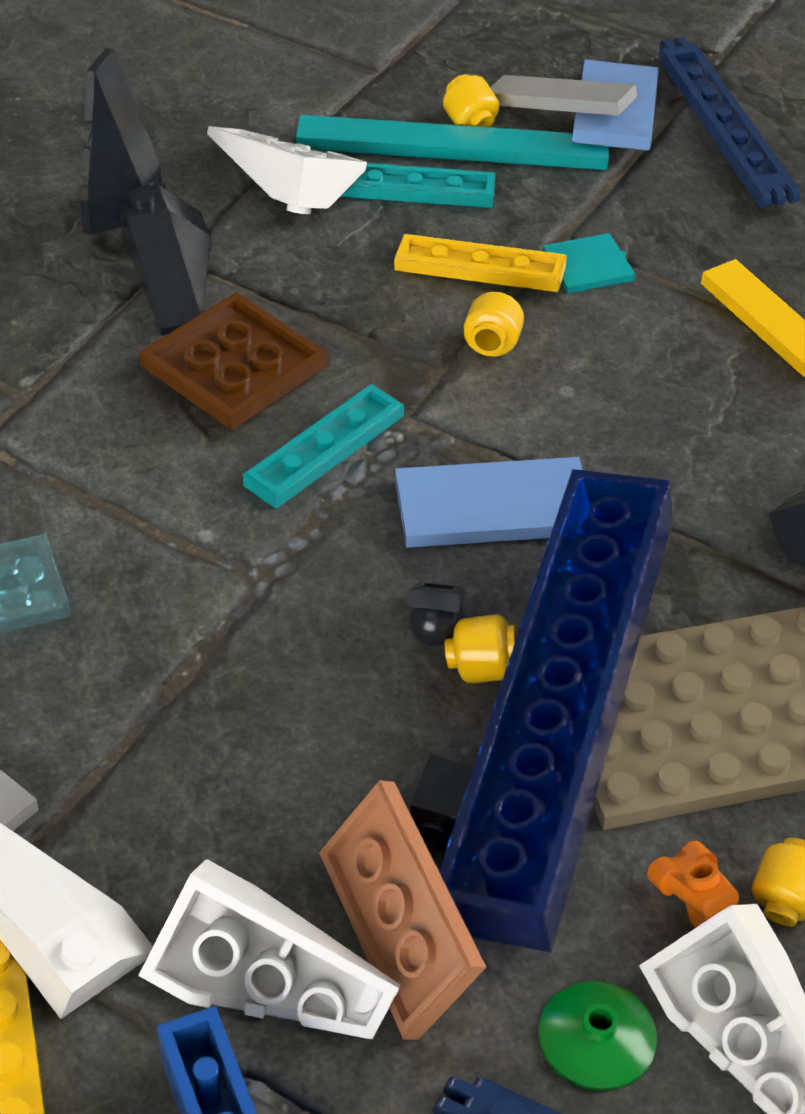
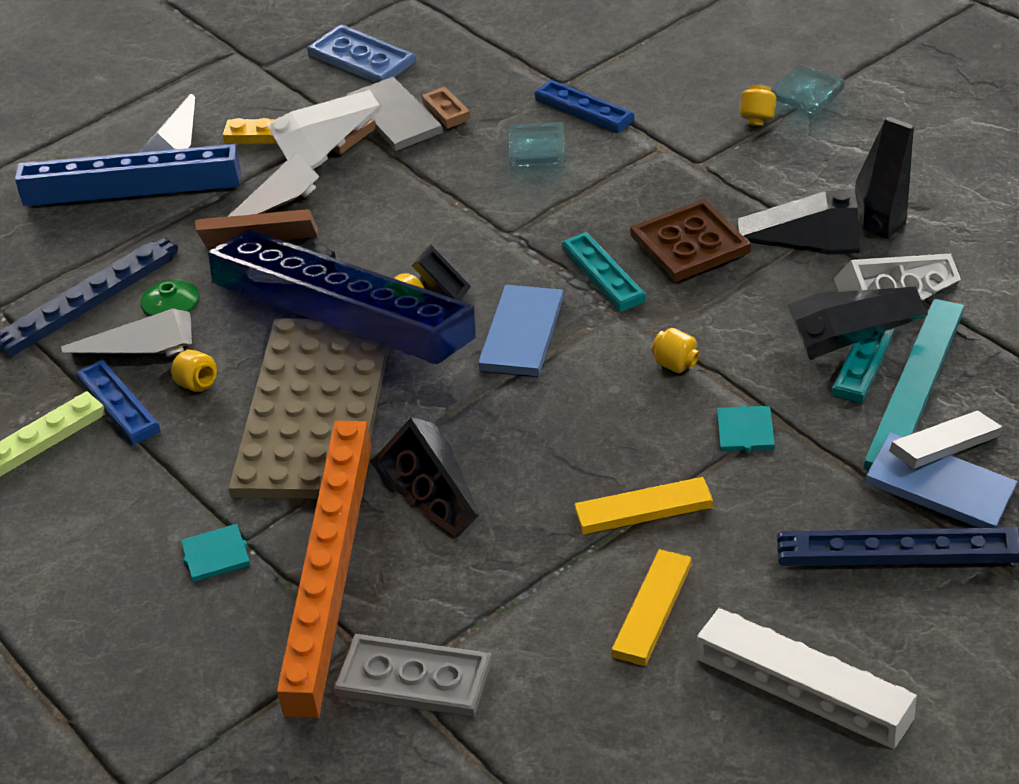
camera: 115 degrees right, 5 degrees down
(393, 181) = (843, 318): none -> black wedge
(470, 101) = (954, 393): yellow head -> none
(480, 262) = (755, 367): yellow tile -> none
(694, 880) = (210, 335): orange plate -> none

